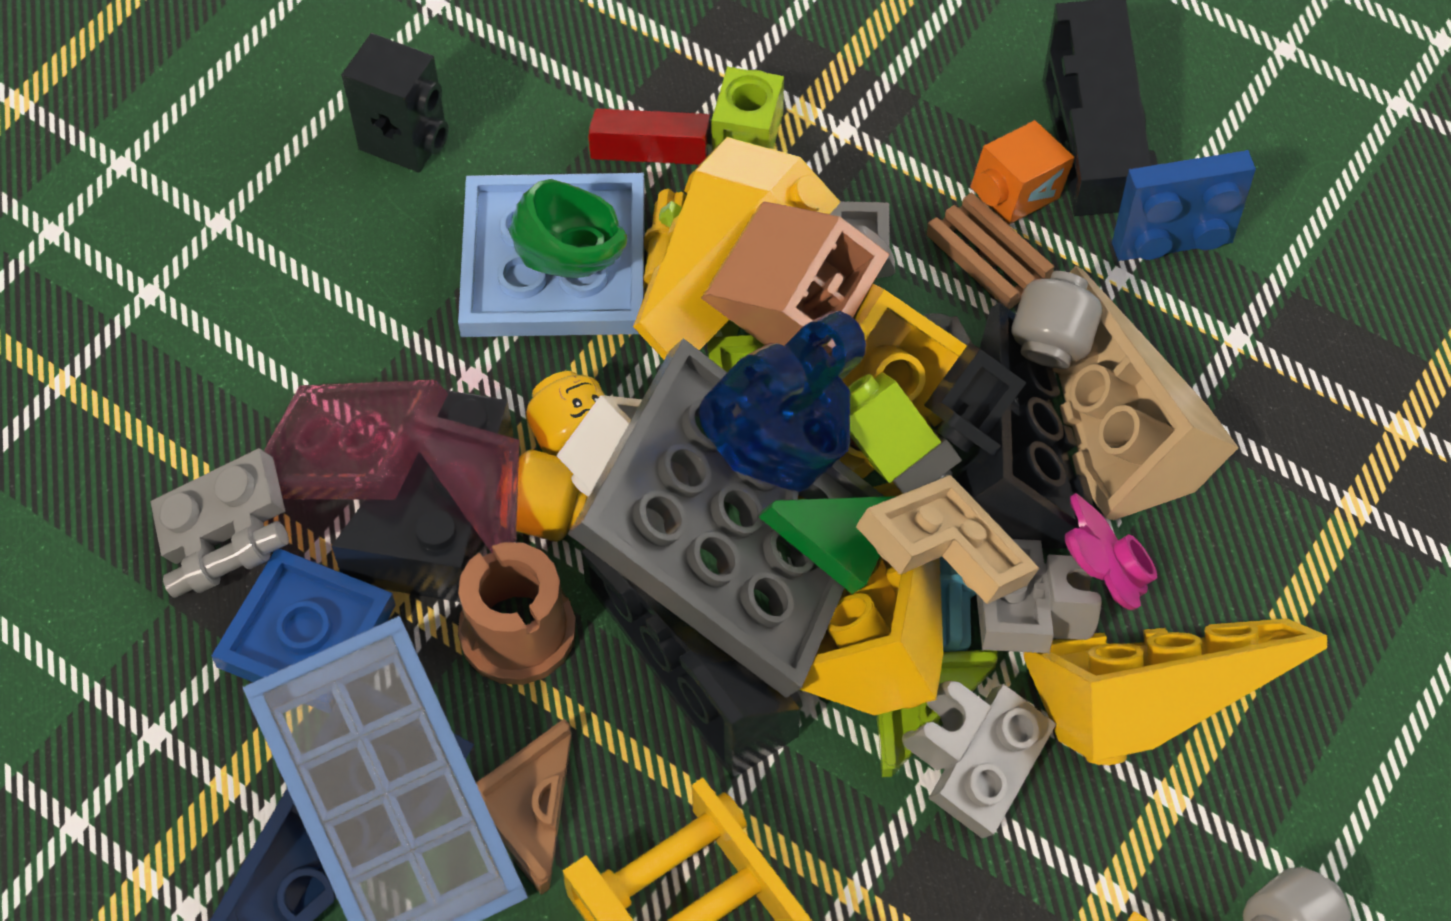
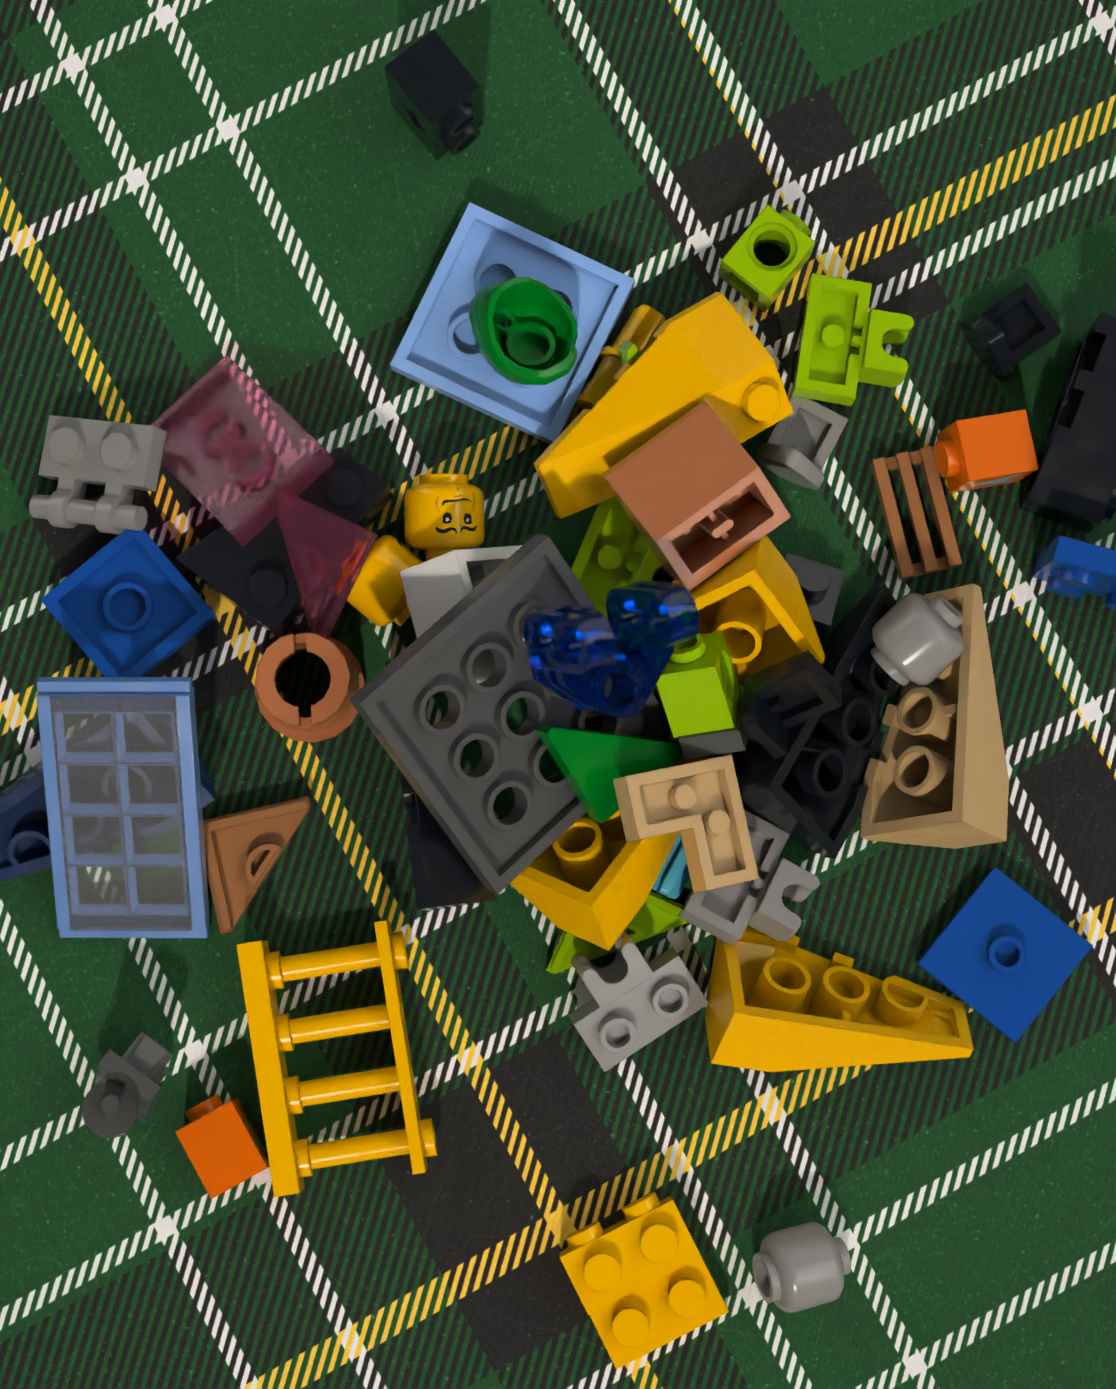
camera: 25 degrees right, 25 degrees up
(649, 136) = (668, 226): red slope -> none
(854, 151) = (845, 342): none -> lime plate
(983, 92) = (1010, 331): none -> black tile
(1120, 563) = (833, 885): dark pink plate -> none
(1296, 559) = (1004, 954): none -> blue plate

